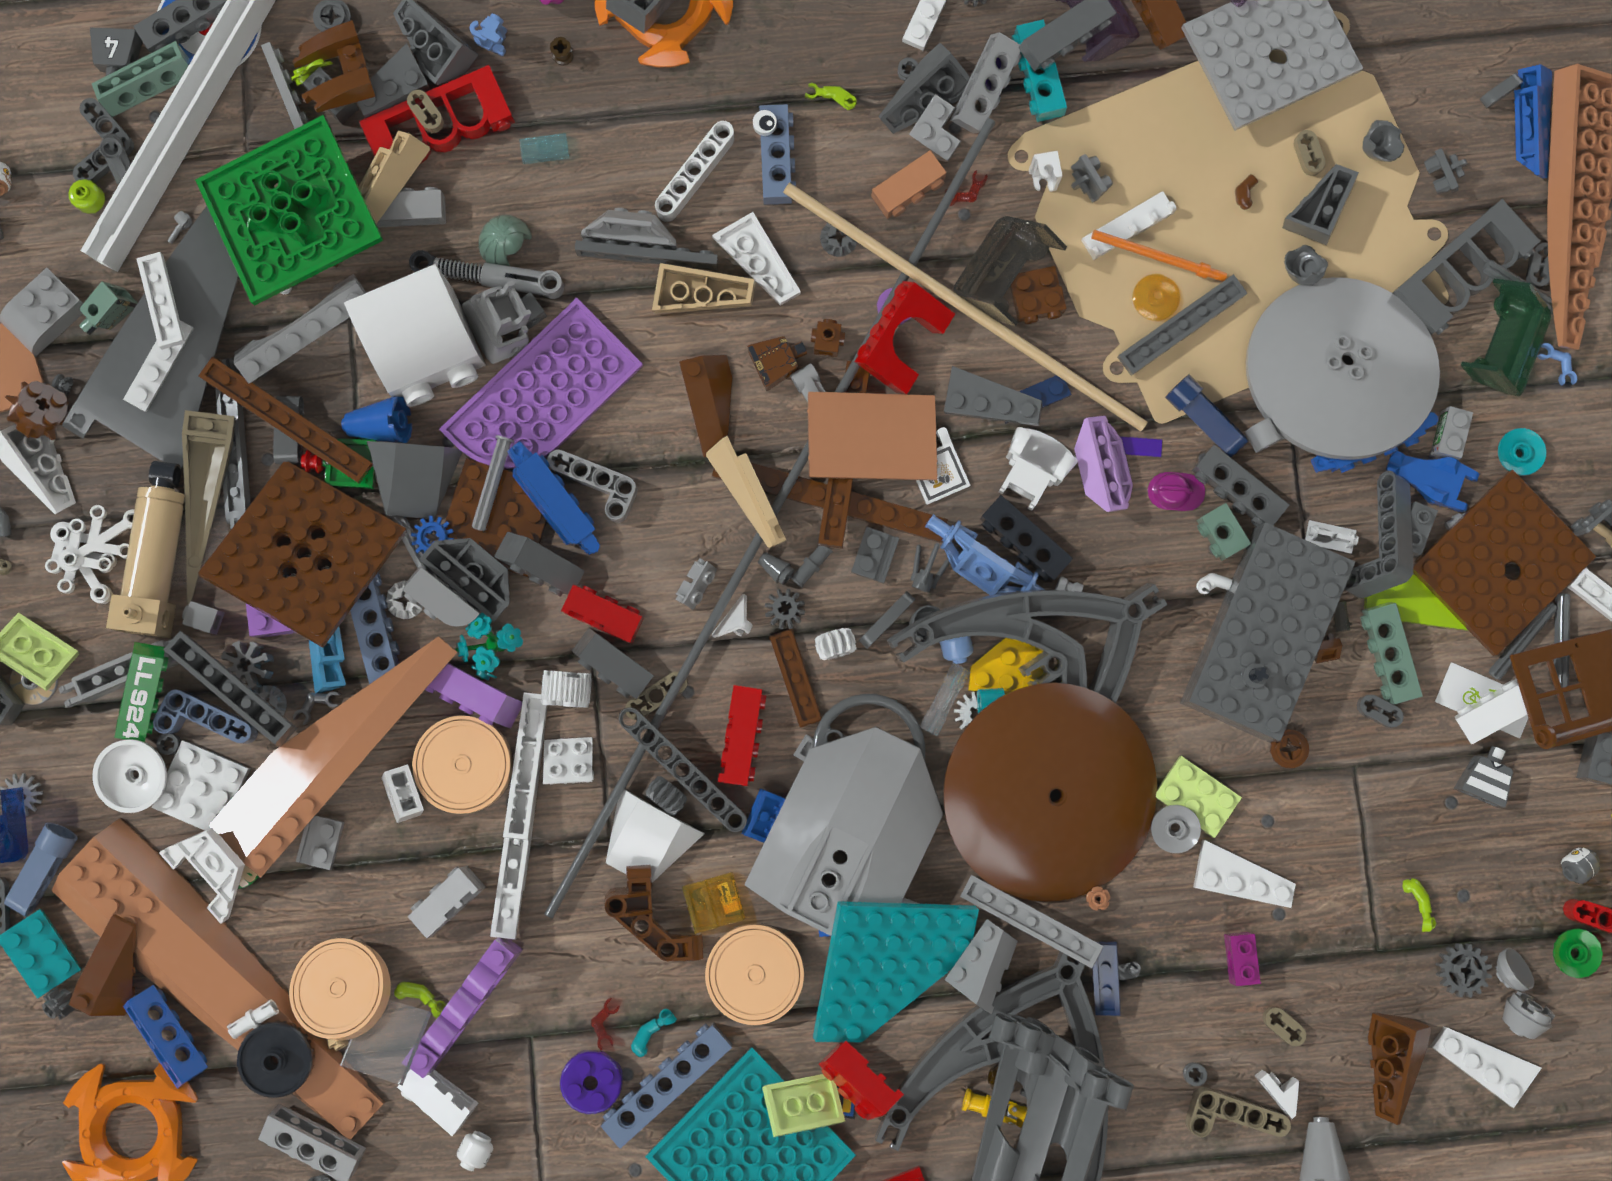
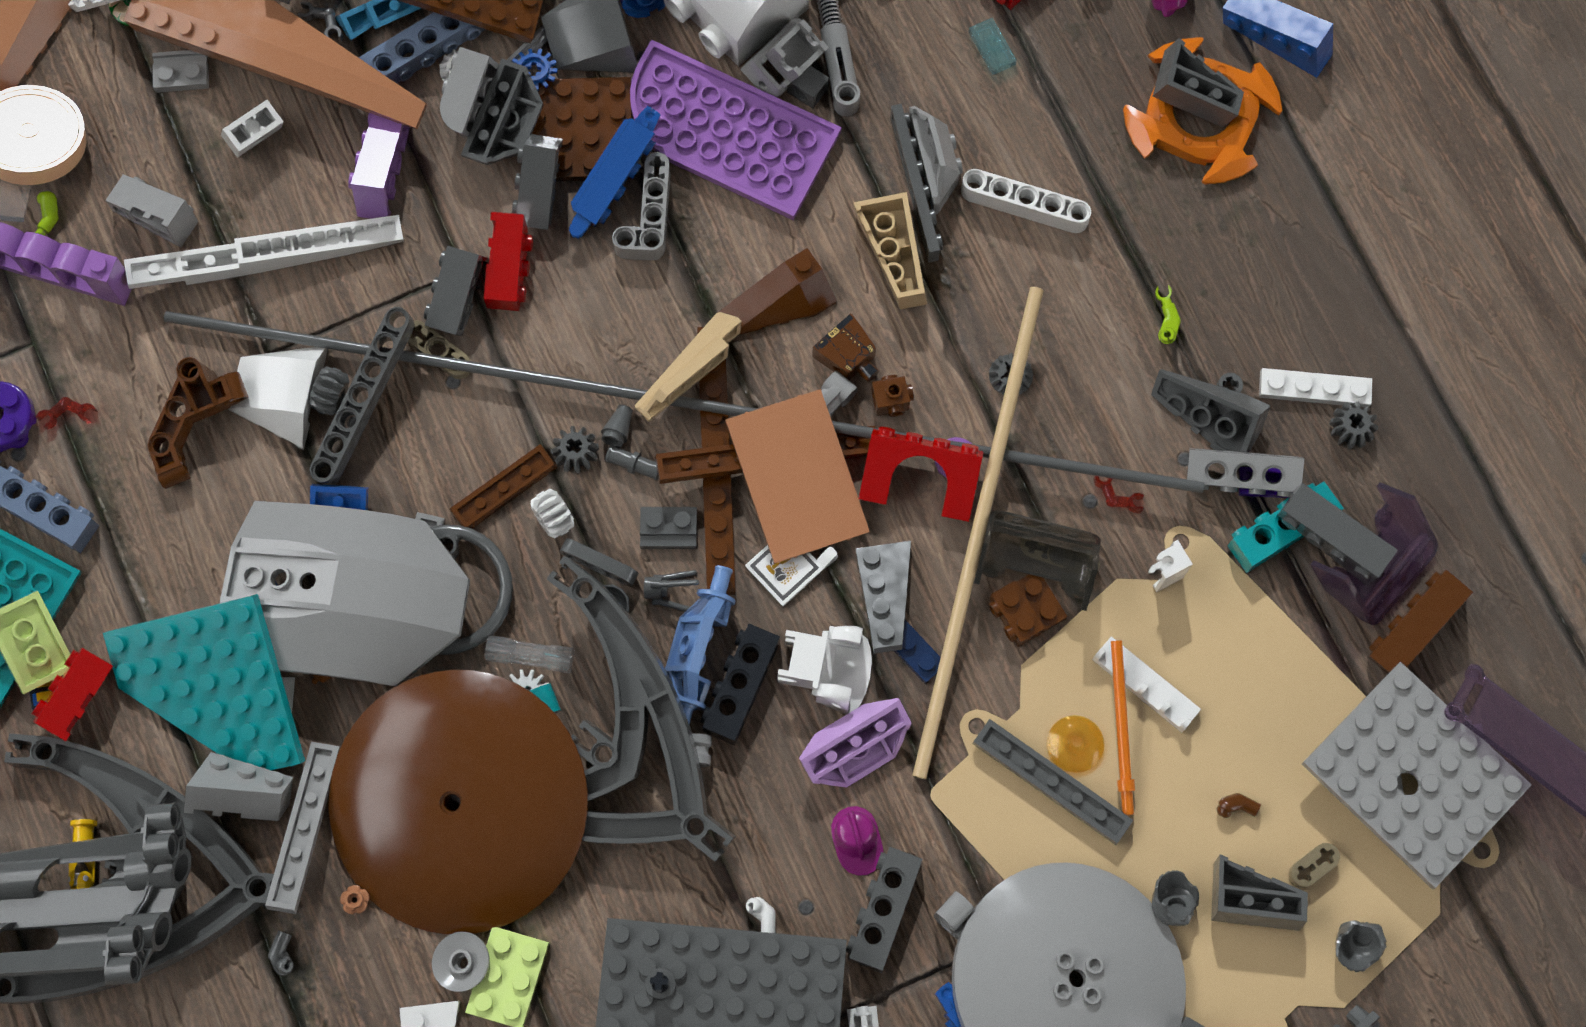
camera: 70 degrees right, 10 degrees down
(462, 764) = (300, 177): light nougat brick -> none
(484, 658) = (443, 169): teal plant -> none
(491, 483) = (608, 106): light grey axle -> none
(502, 237) = (878, 33): sand green hair -> none
(555, 48) = (1103, 26): dark brown bush -> none
(566, 689) = (413, 251): white brick -> none
(568, 761) = (338, 282): white hinge -> none
(643, 1035) = (51, 453): teal arm -> none
(692, 593) = (562, 349): light grey hinge -> none
(713, 902) = (229, 481): clear yellow slope -> none
(735, 620) = (544, 400): white piece -> none
(741, 735) = (417, 448): red wedge -> none
(754, 974) = (161, 547): light nougat brick -> none
(755, 253) = (957, 295): white wing -> none
(764, 122) = (1103, 249): white tile -> none
(771, 166) = (1112, 257): sand blue brick -> none
(909, 185) = (1097, 427): nougat brick -> none
(930, 128) = (1170, 430): light grey plate -> none
(957, 649) = (589, 648): light blue head -> none
(1000, 667) = (585, 700): yellow plate -> none
(1088, 179) = (1179, 618): dark grey hips -> none
(1107, 981) = (261, 936): plate -> none
(1142, 446) = (895, 784): dark purple sticker -> none
(1190, 399) = (955, 843): dark blue beam -> none
(1224, 518) = (840, 895): sand green brick -> none

